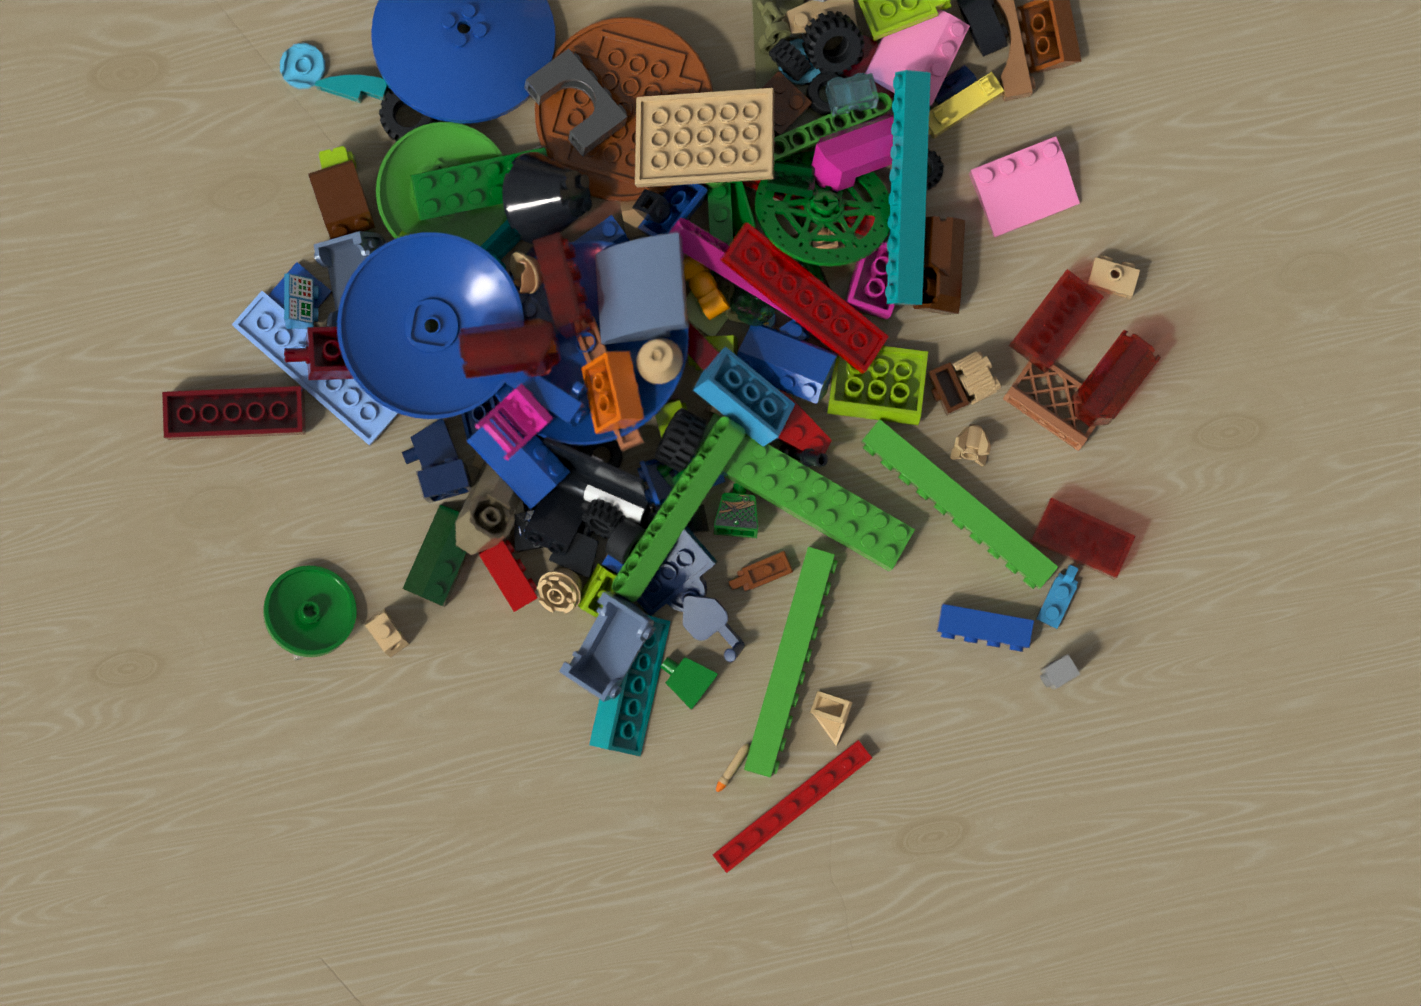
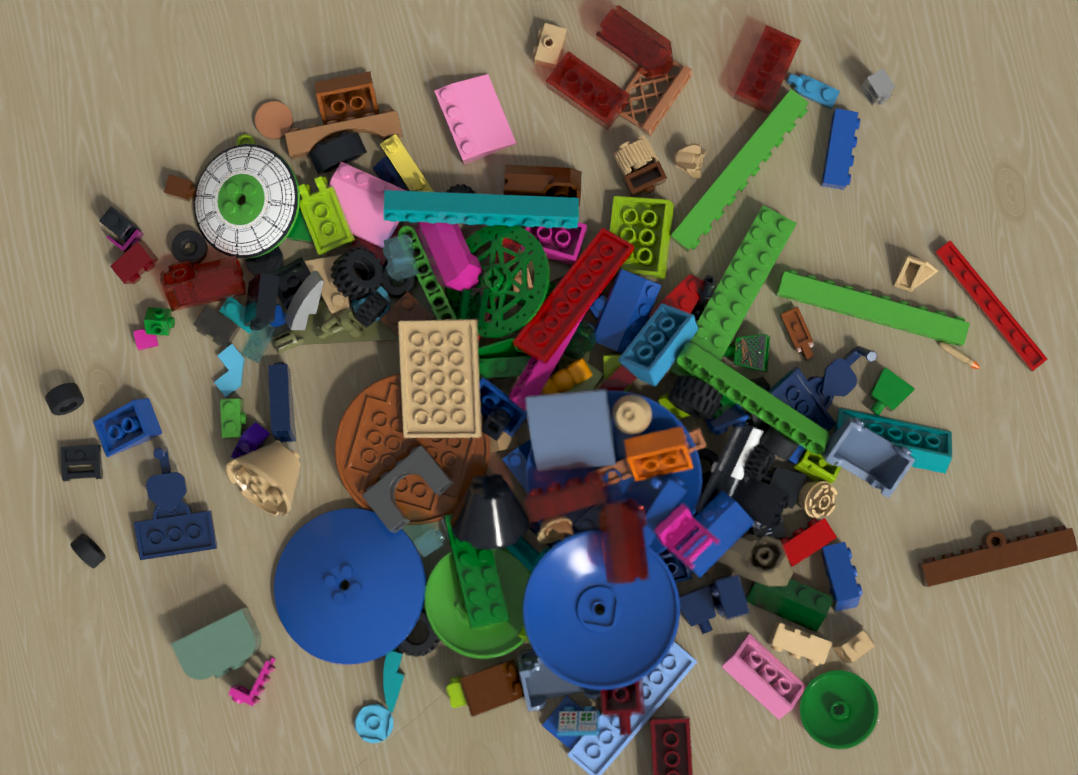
camera: 90 degrees left, 0 degrees up
(350, 524) = (764, 676): none -> bright pink slope
(388, 566) = (799, 643): none -> tan wedge
(467, 617) = (841, 576): none -> blue wedge
(489, 807) = (997, 557): none -> reddish brown hinge
(513, 129) = (430, 542): none -> clear light blue brick

